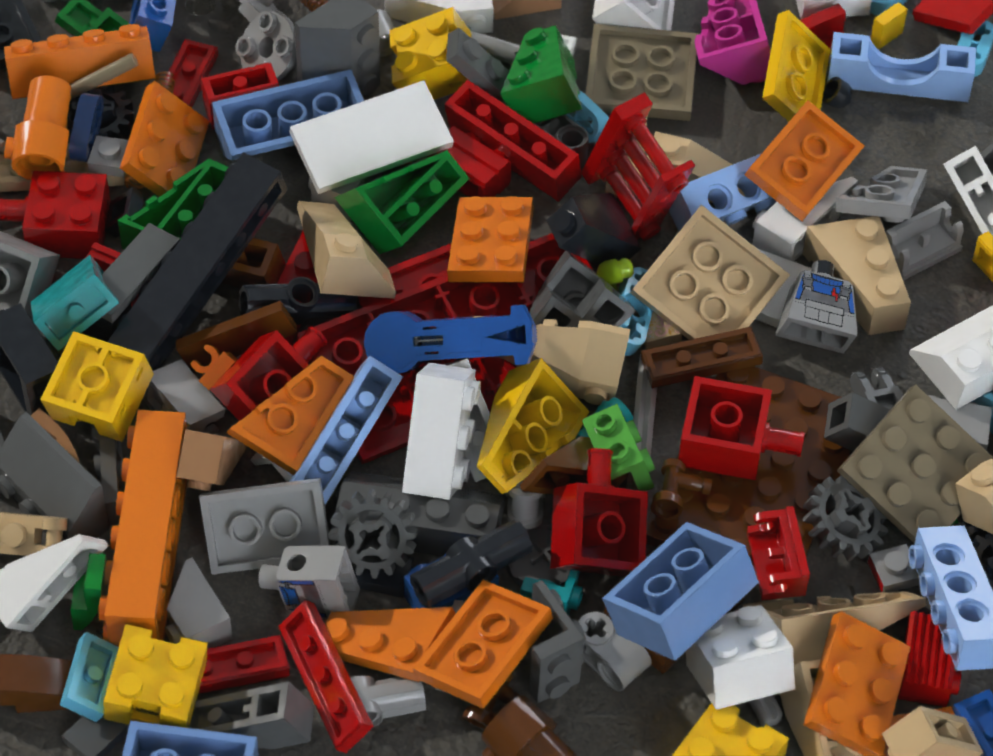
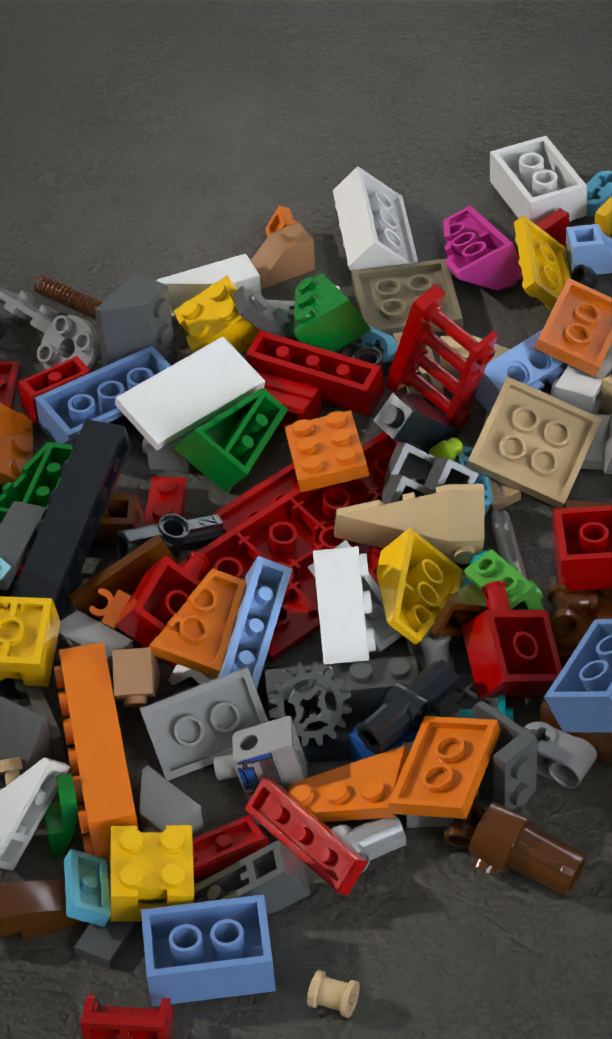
camera: 10 degrees left, 10 degrees down
(341, 256) = (197, 490): tan wedge -> none
(406, 341) = (292, 540): blue piece -> none
(701, 357) = (537, 506): reddish brown tile -> none

